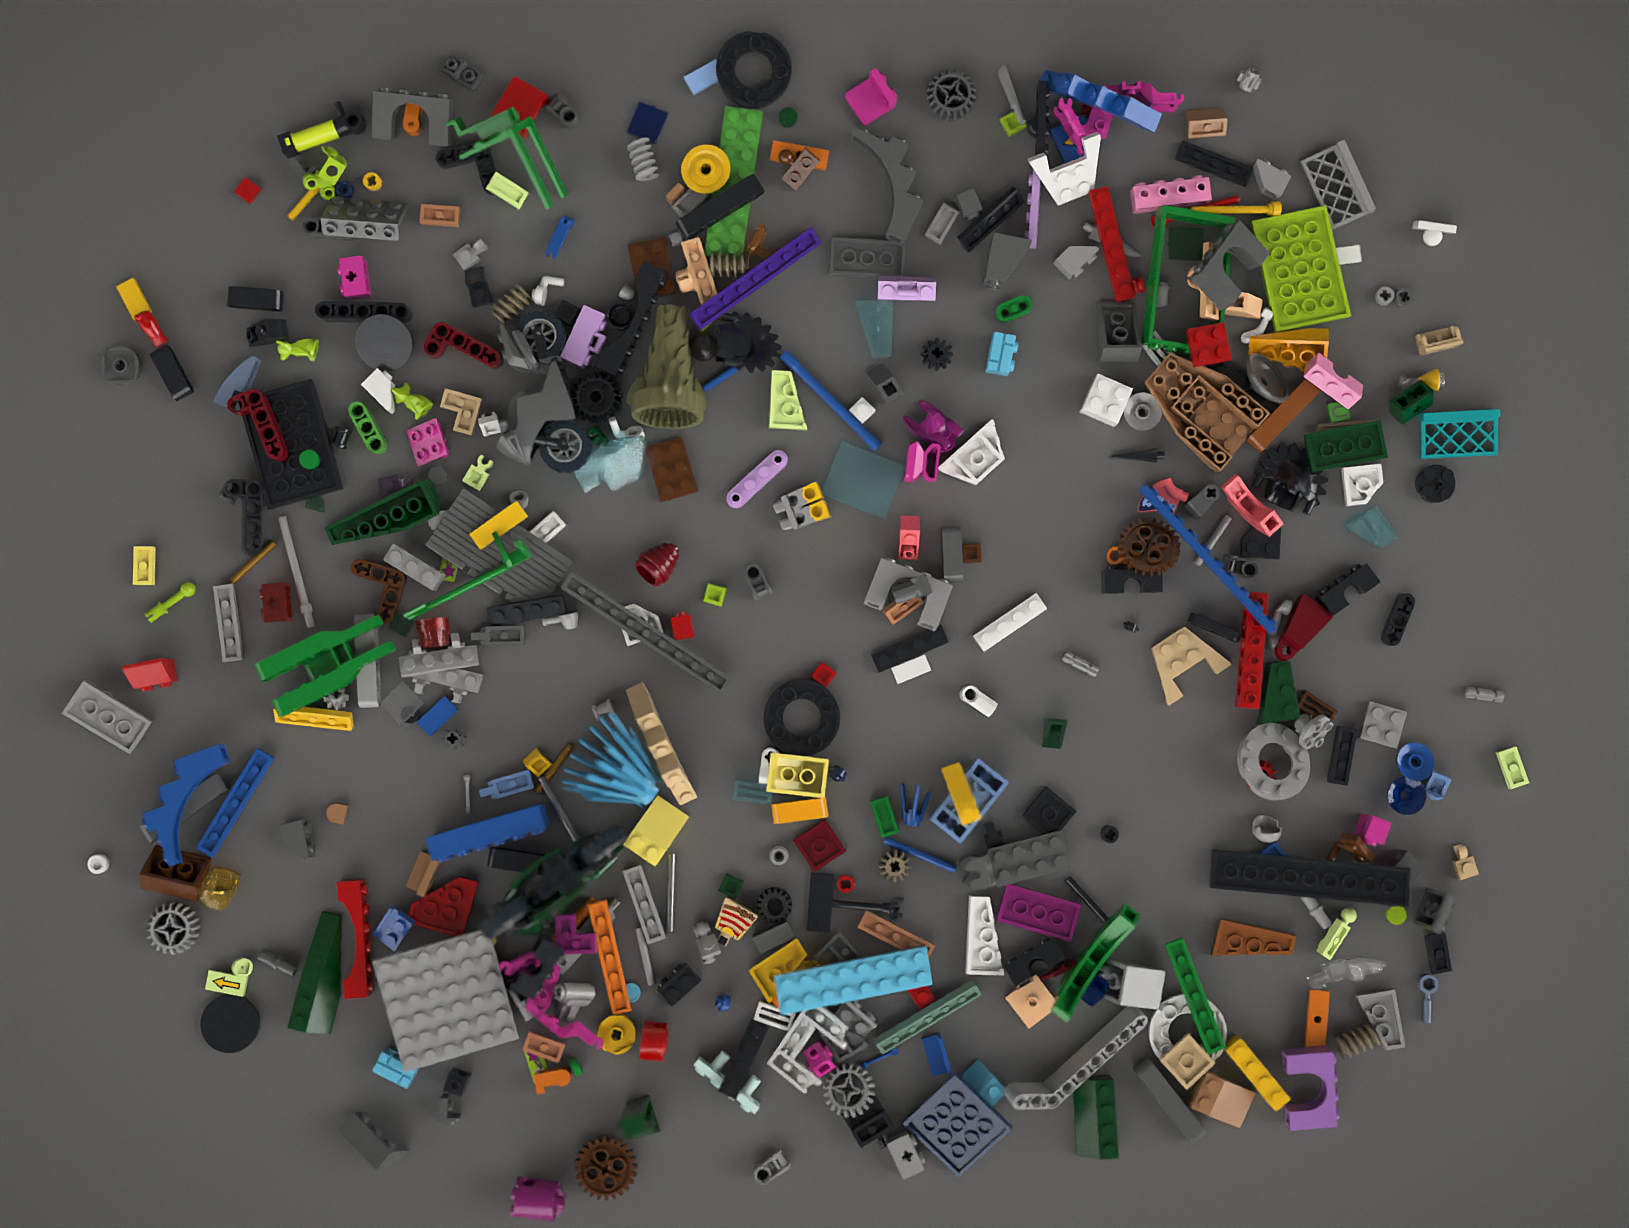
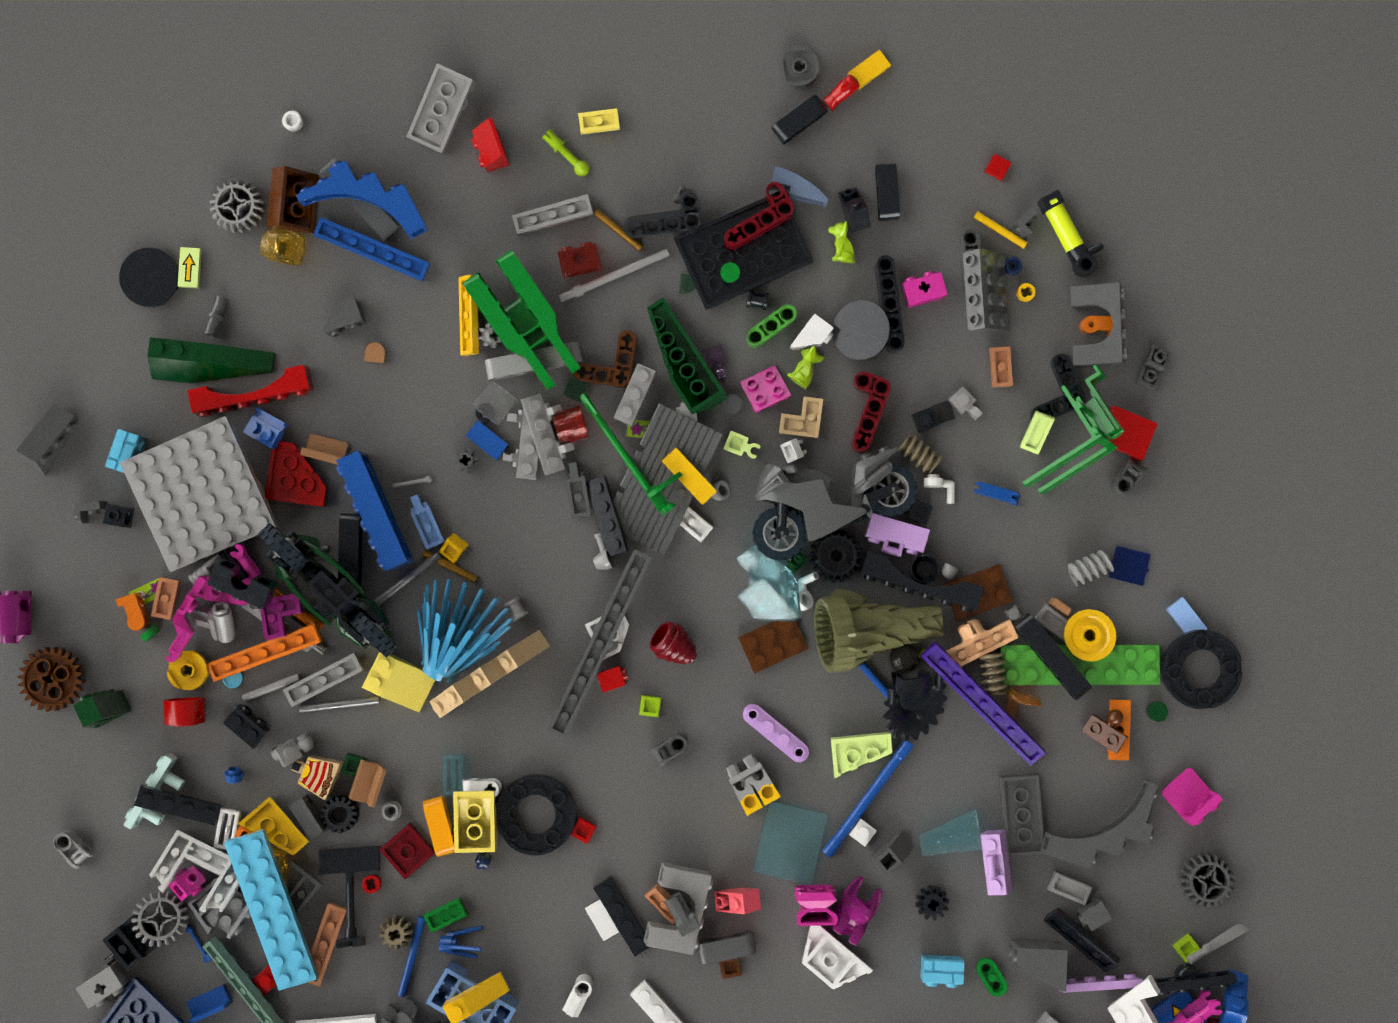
camera: 80 degrees right, 0 degrees up
(242, 967) = (207, 281): yellowish green tile -> none
(321, 178) = (1020, 242): lime piece -> none
(748, 874) = (367, 782): none -> medium nougat panel

